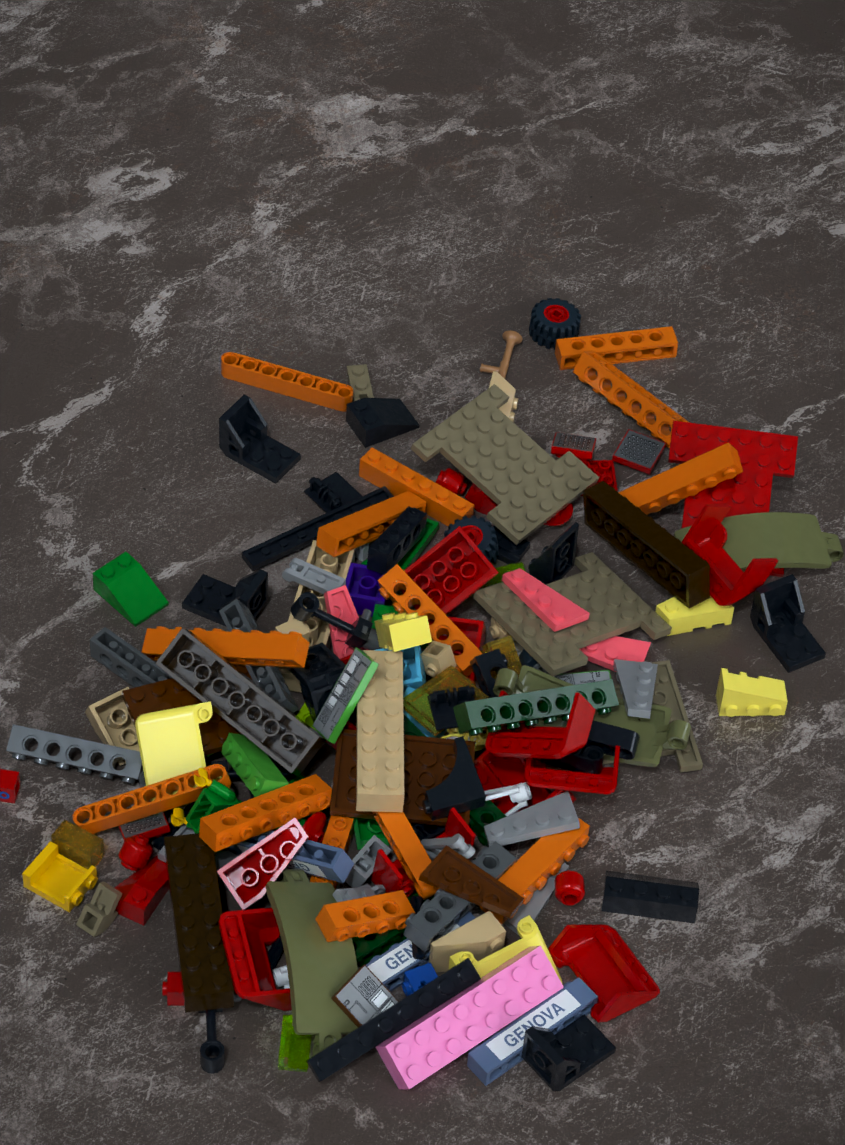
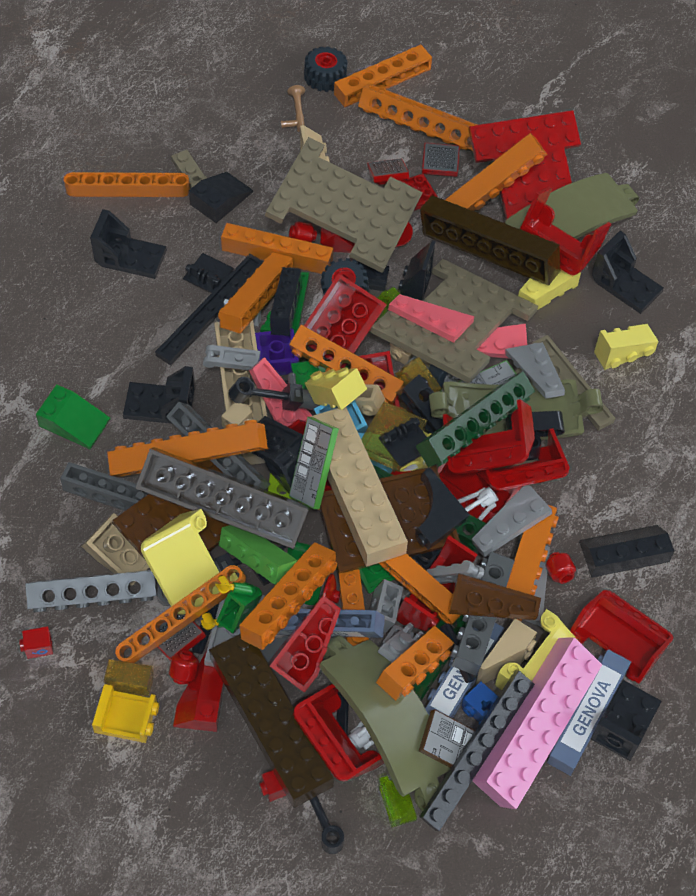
camera: 20 degrees left, 10 degrees up
(100, 911) = (175, 734): dark tan brick -> none

